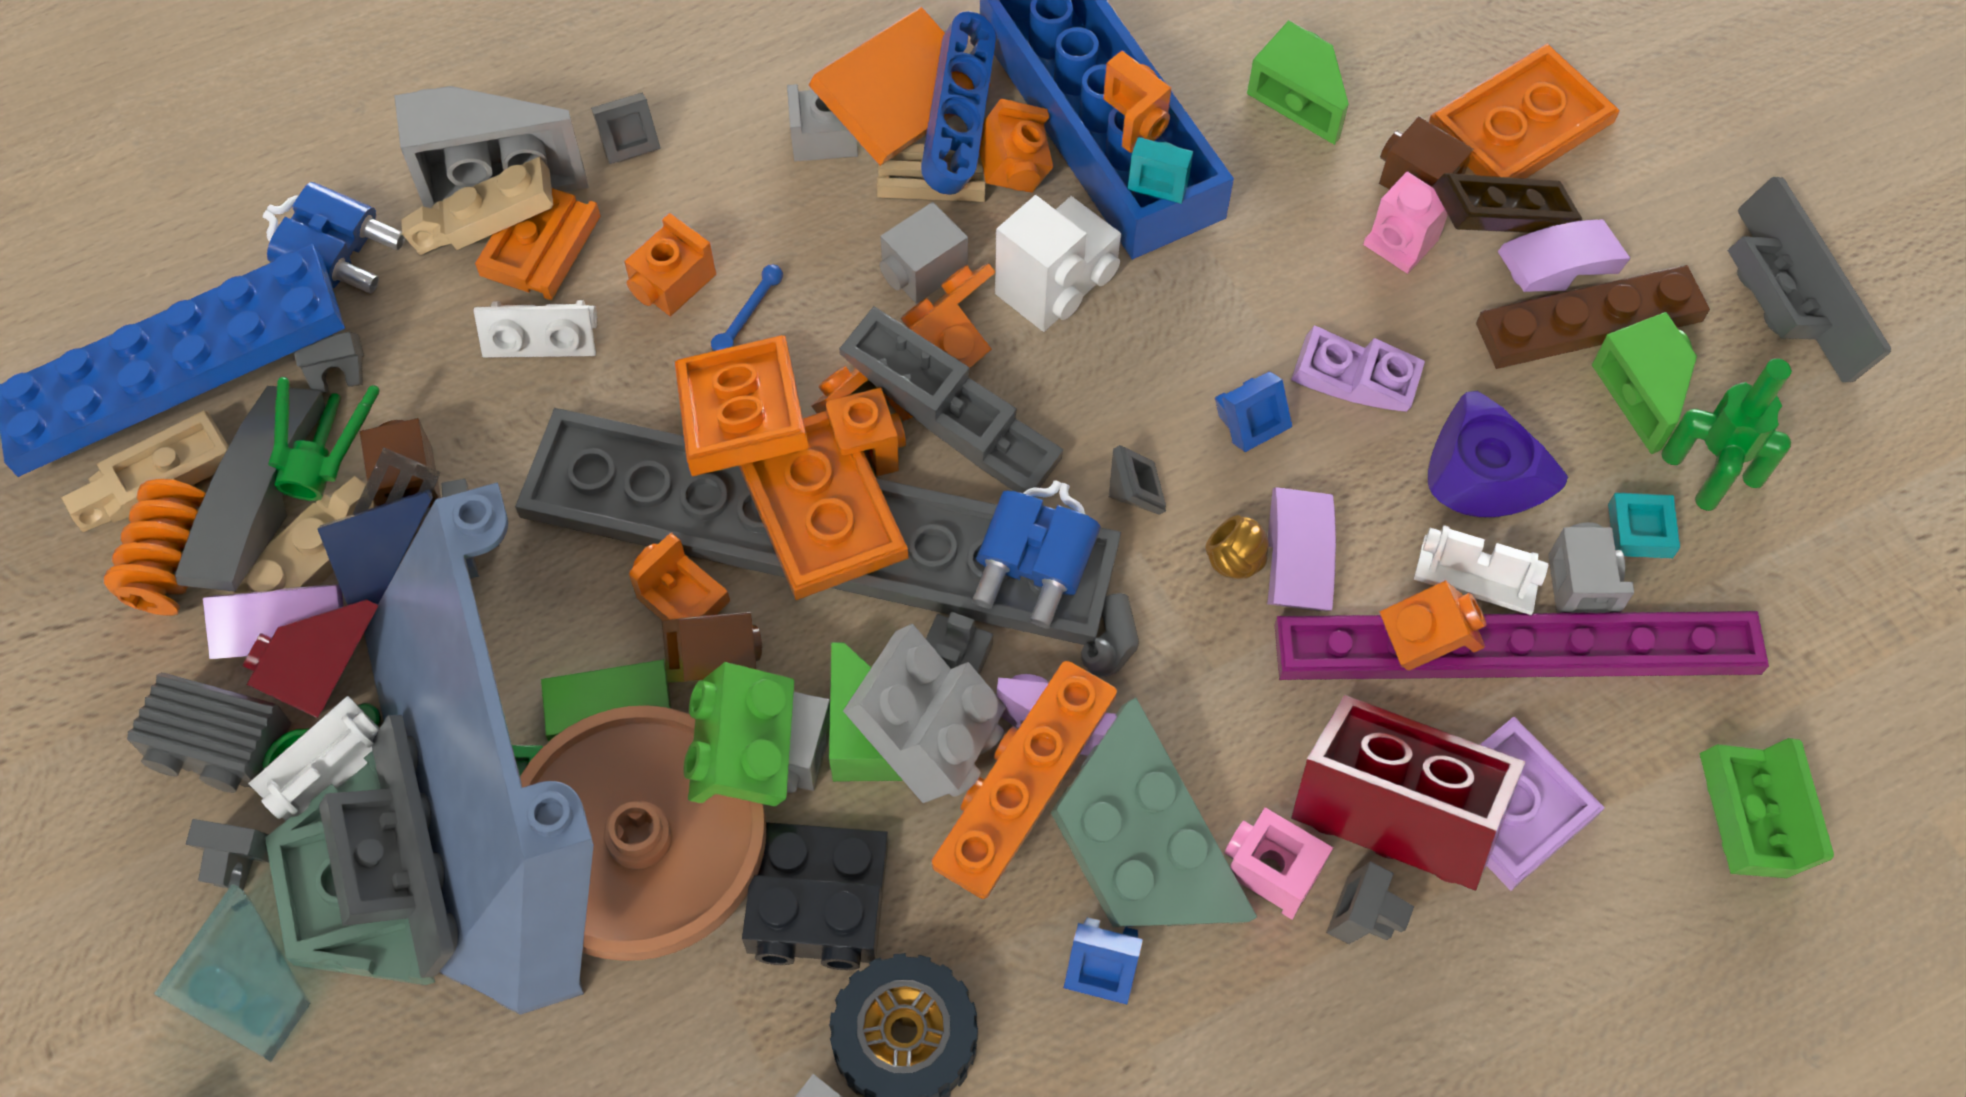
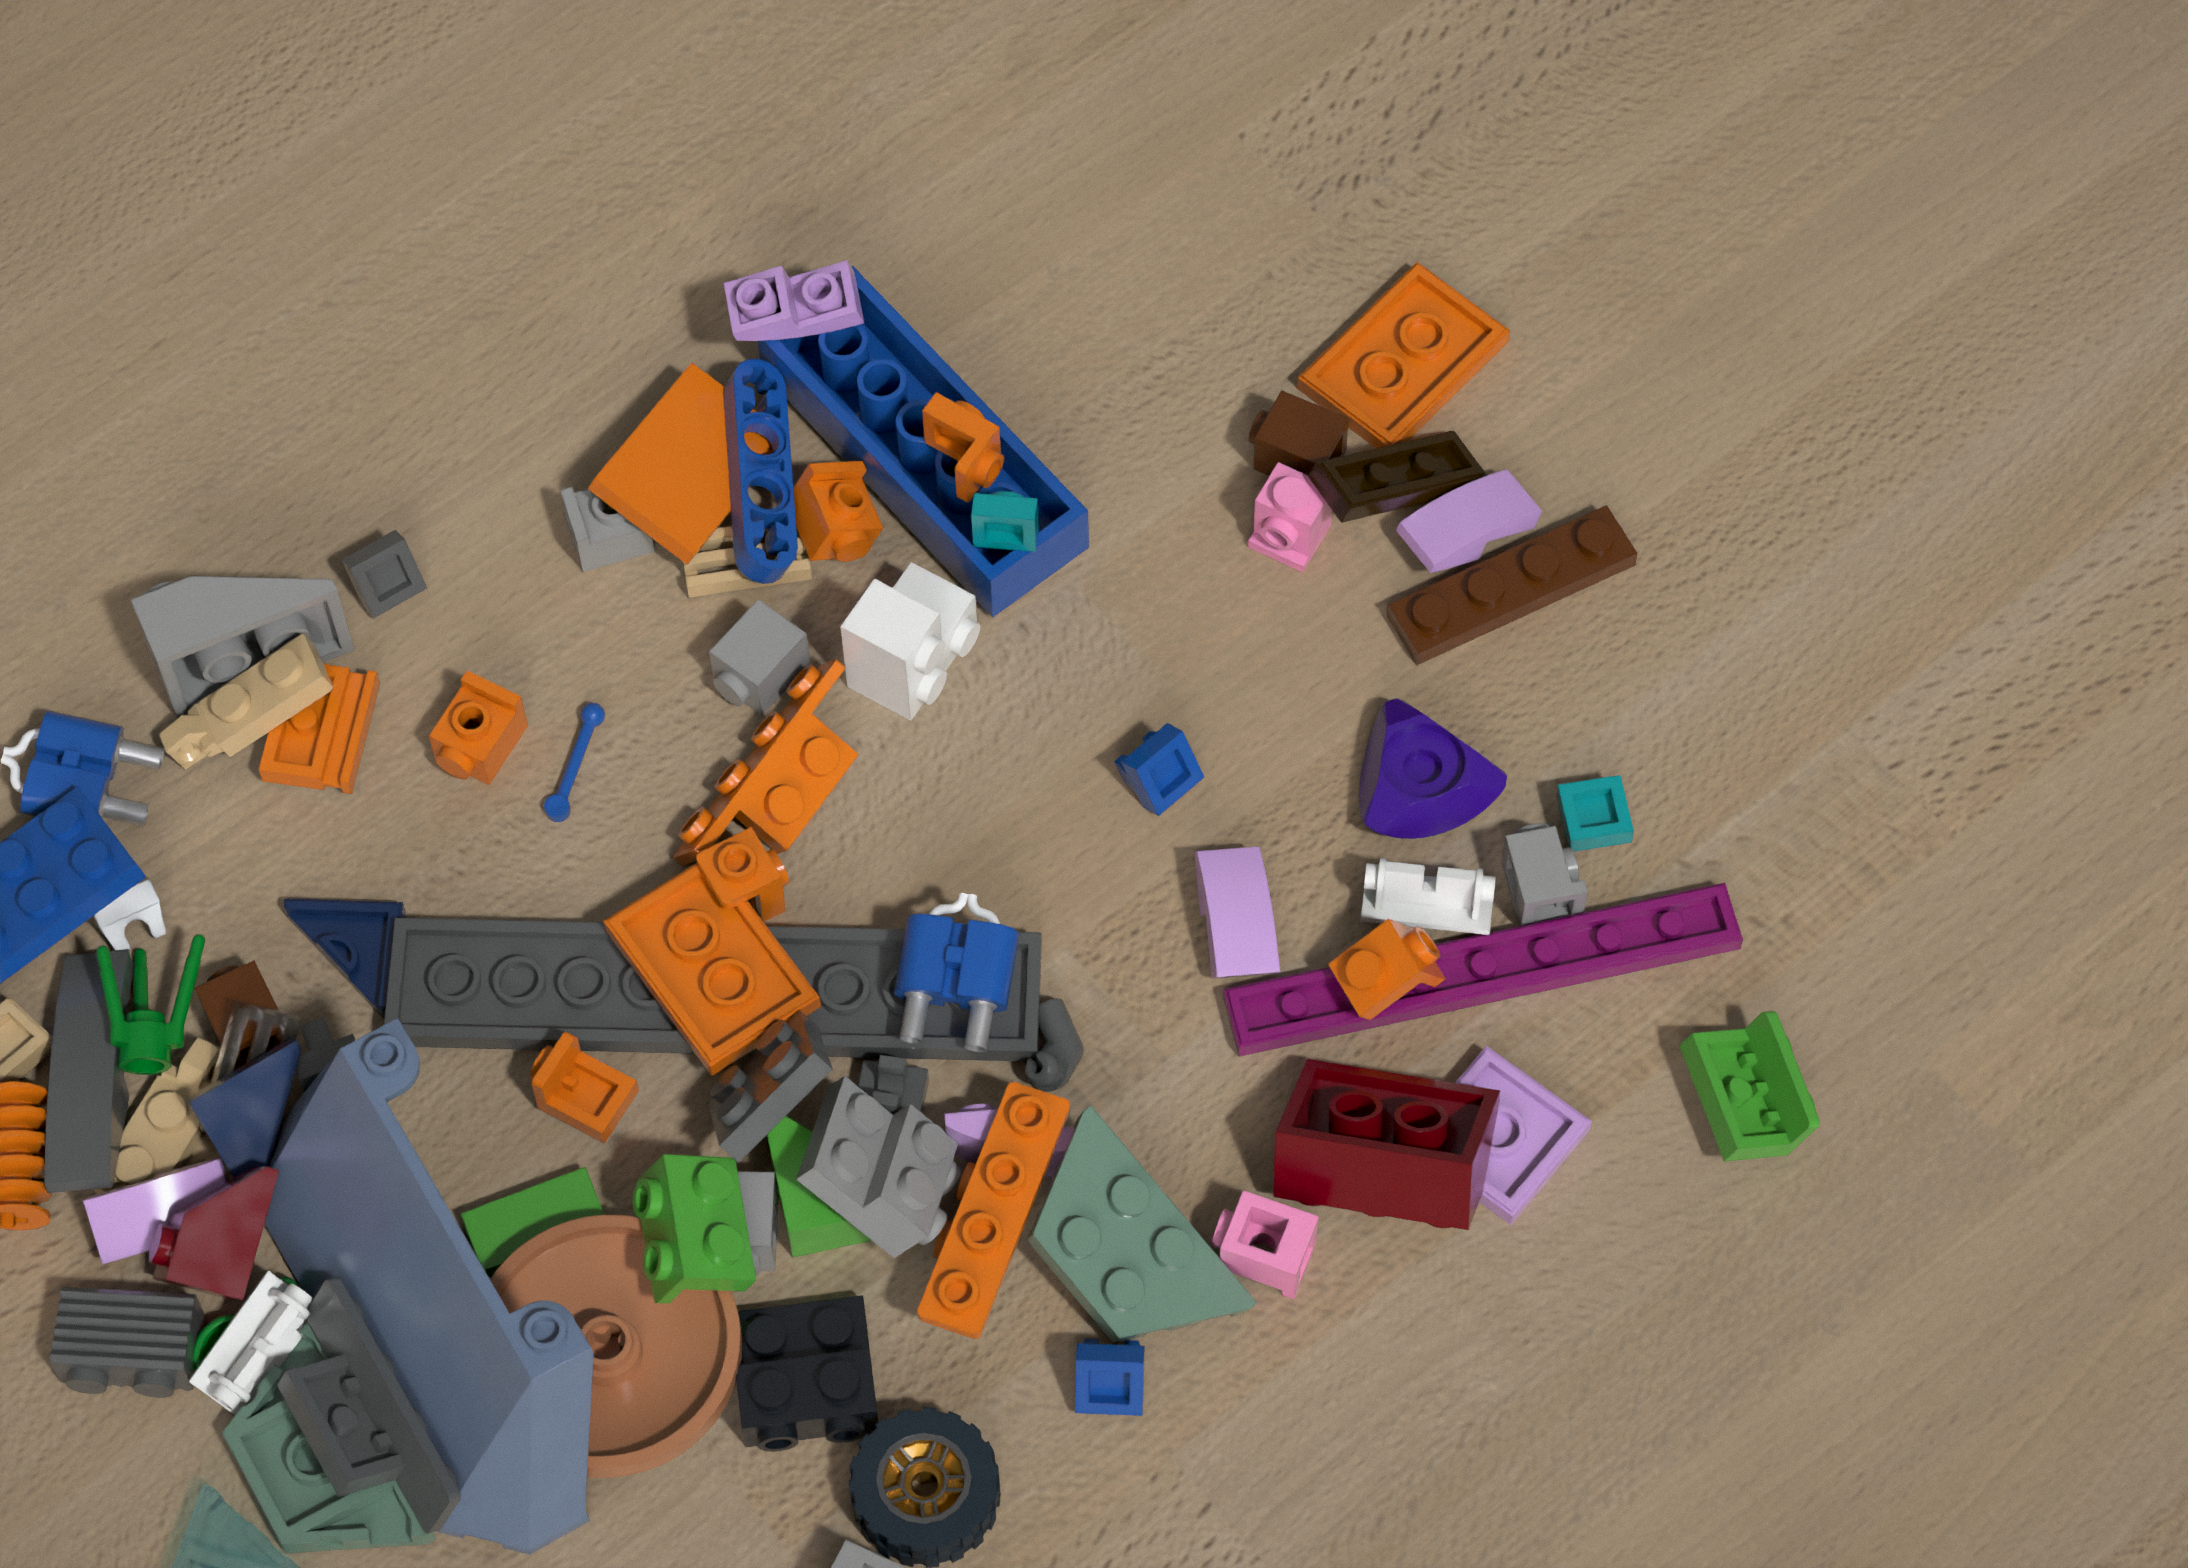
camera: 10 degrees left, 0 degrees up
(226, 852) = (187, 1452): dark grey tile -> none
(515, 418) = (353, 939): none -> dark blue tile
(536, 330) = (334, 837): white hinge -> none
(703, 643) = (632, 1141): reddish brown brick -> none
(739, 405) = (600, 874): orange tile -> none
(832, 625) = (769, 1085): none -> dark grey plate
(949, 403) = (829, 828): dark grey slope -> none
(1135, 481) = (1046, 872): dark grey slope -> none
(1238, 548) = (1169, 924): pearl gold piece -> none
(1301, 81) = (1143, 365): bright green slope -> none
(1367, 376) = (1271, 702): lavender slope -> none
(1369, 906) = (1367, 1269): dark grey tile -> none
(1648, 375) = (1577, 642): bright green slope -> none
(1736, 433) = (1671, 699): green plant -> none
(1802, 282) = (1729, 502): dark grey bracket -> none

